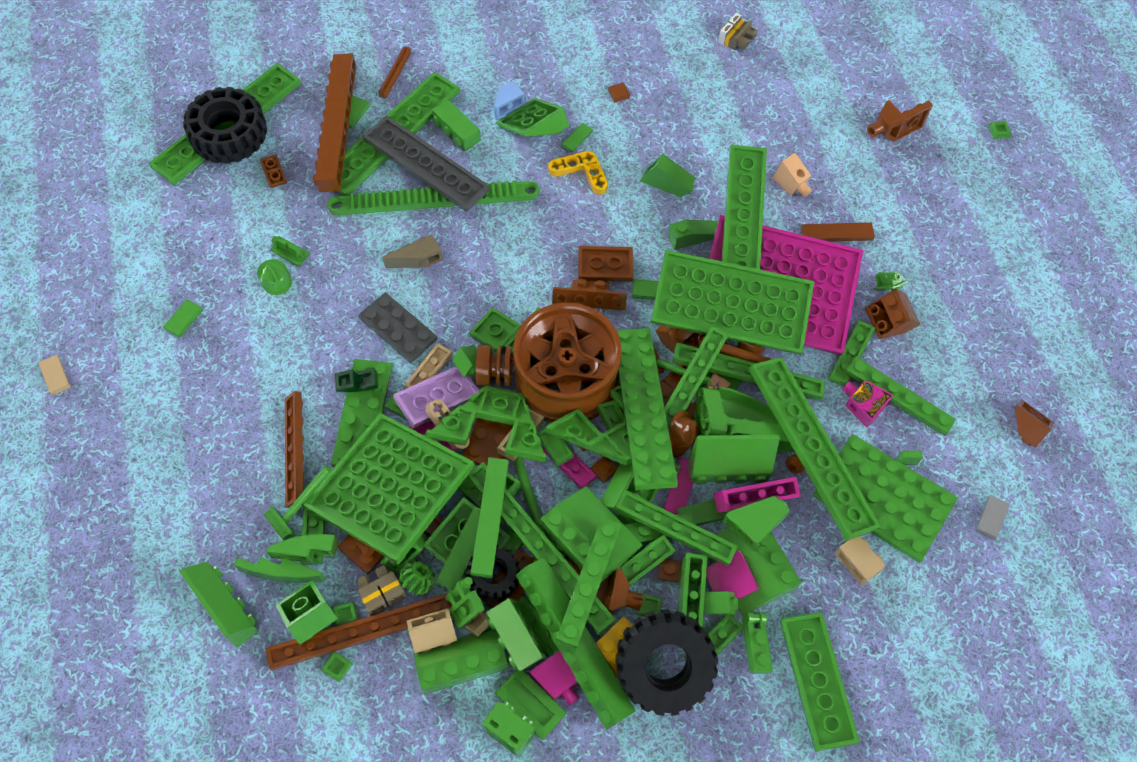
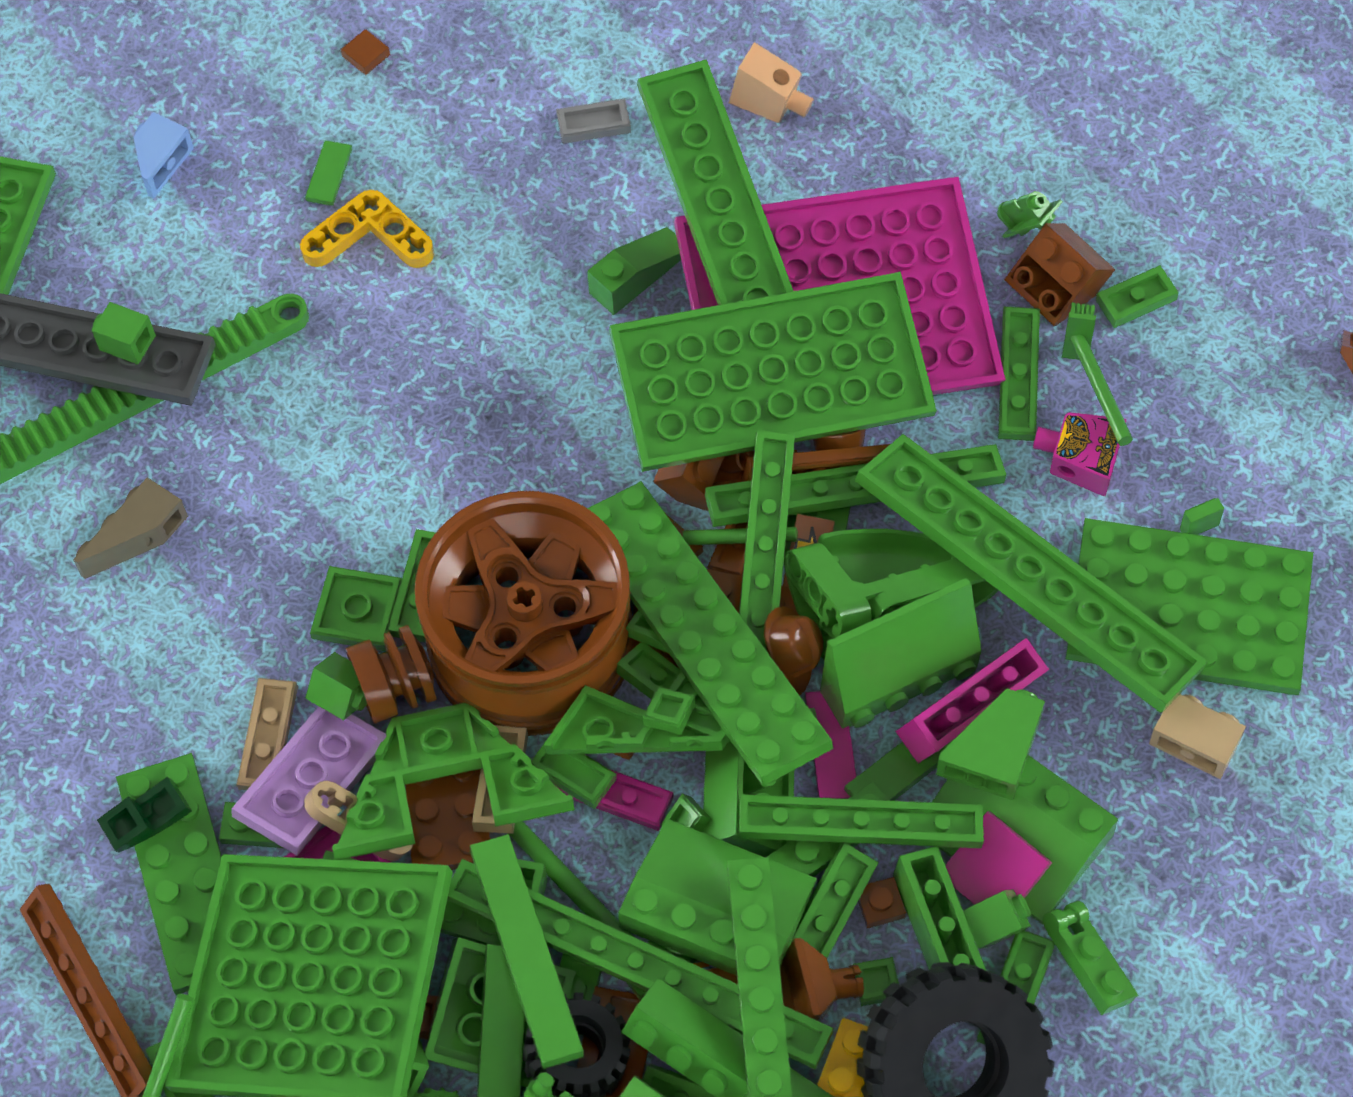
camera: 20 degrees left, 0 degrees up
(398, 327) = (167, 681): dark grey plate -> none
(451, 167) = (123, 332): none -> bright green brick
(456, 125) = (83, 244): bright green brick -> none
(535, 118) = (231, 170): bright green slope -> none
(590, 294) = (500, 466): dark orange bracket -> none
(598, 488) = (688, 813): none -> bright green tile
(604, 469) = (680, 774): dark orange plate -> none
(605, 263) = (500, 394): dark orange plate -> none
(609, 436) = (669, 710): none -> bright green tile
(644, 289) = (598, 411): bright green tile -> none
(668, 176) = (539, 180): bright green slope -> none
(706, 161) = (593, 121): none -> light grey tile
(794, 464) = (1011, 617): dark orange plate -> none
(819, 682) = (1222, 975): bright green plate -> none
(839, 231) = (895, 157): dark orange tile -> none
(885, 352) = (1078, 346): none -> bright green piece
(903, 397) = (1144, 414): bright green plate -> none
(925, 341) = (1137, 296): none -> bright green plate

